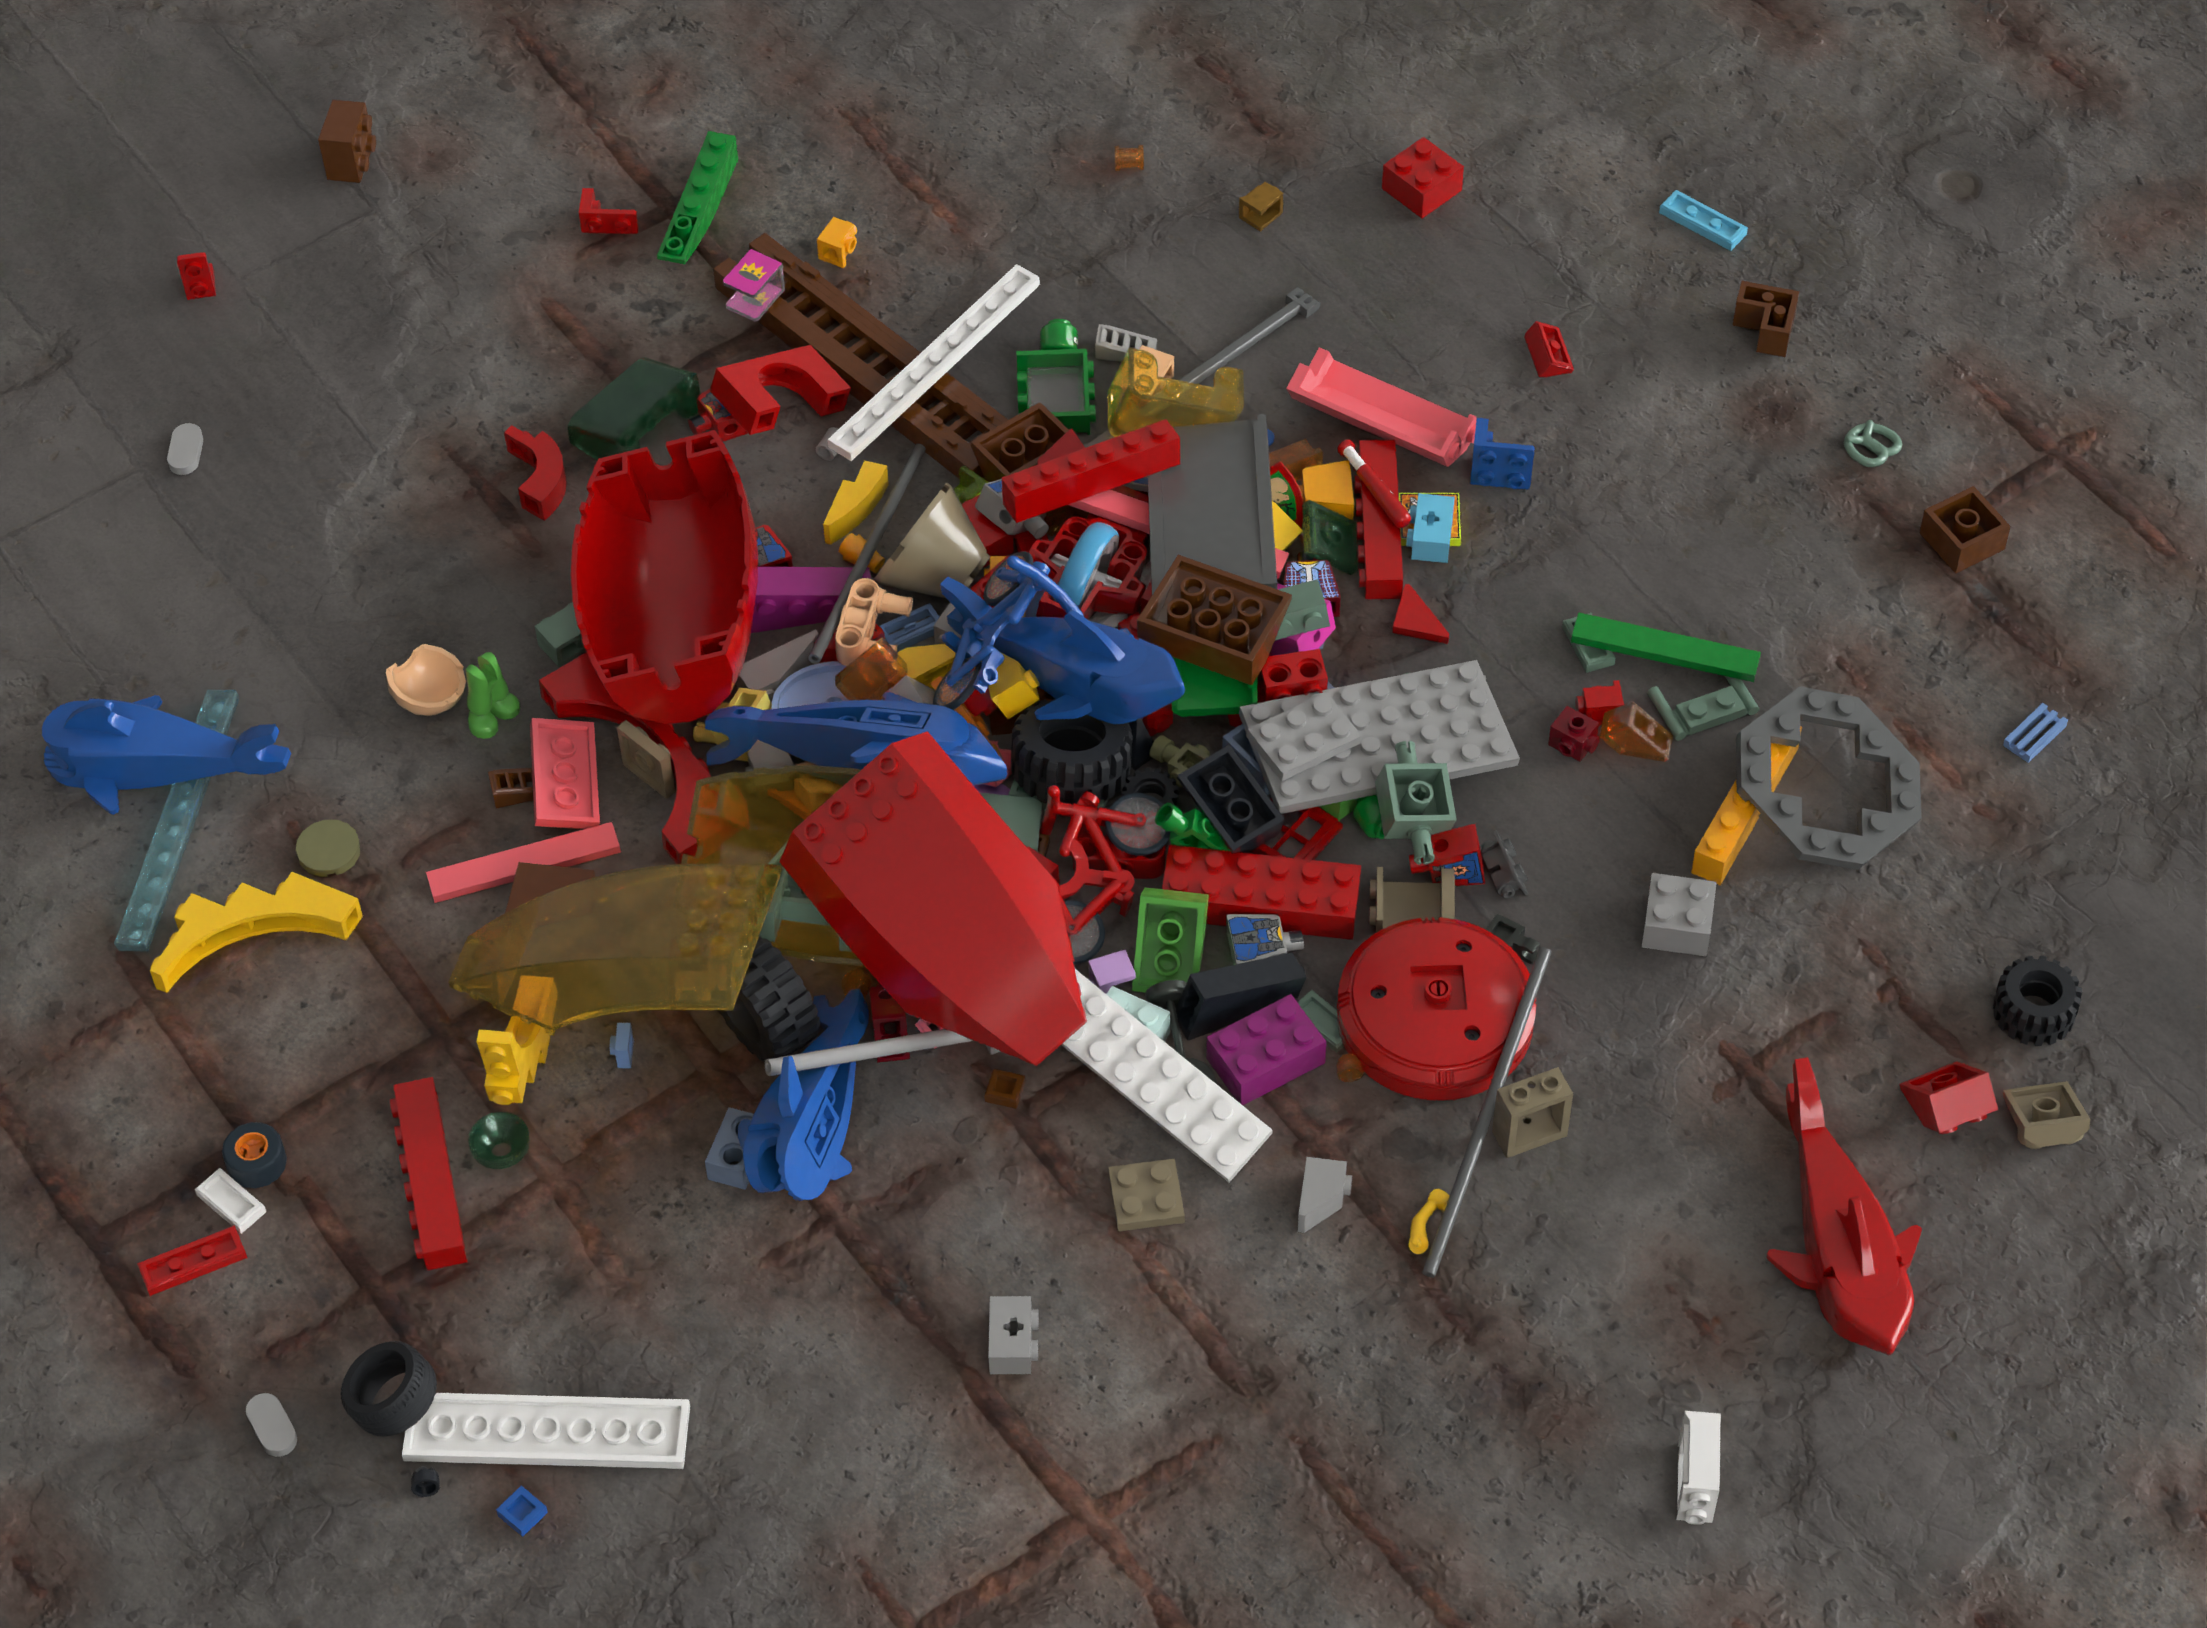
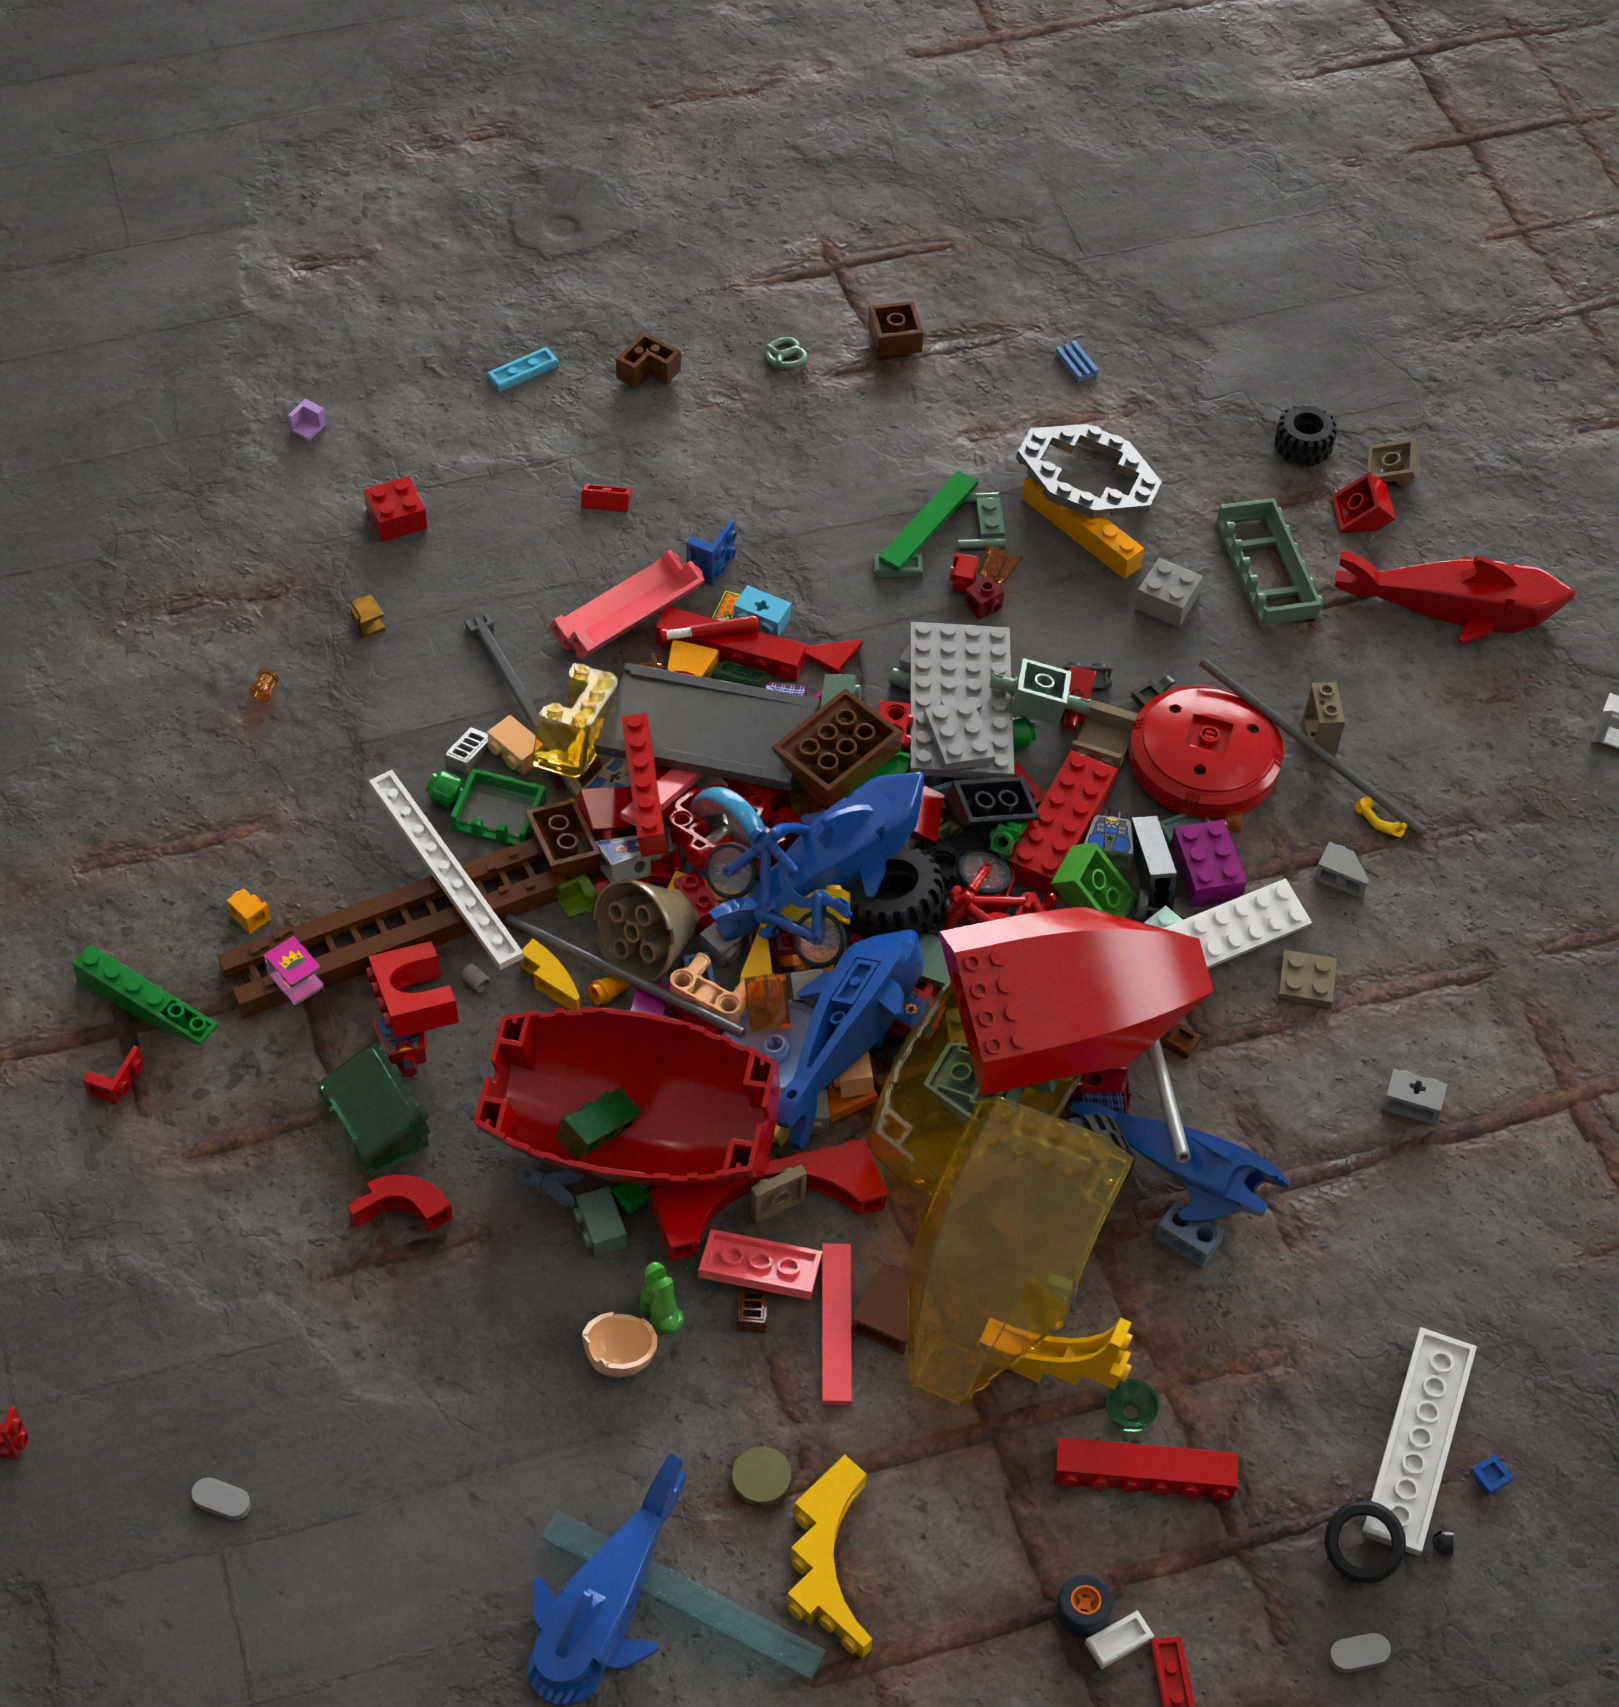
camera: 75 degrees left, 0 degrees up
(645, 564) = (597, 1123): none -> dark green brick
(1191, 746) = (929, 816): none -> red slope
(1514, 66) = (306, 420): none -> lavender panel
(1769, 988) = (1281, 537): none -> sand green window

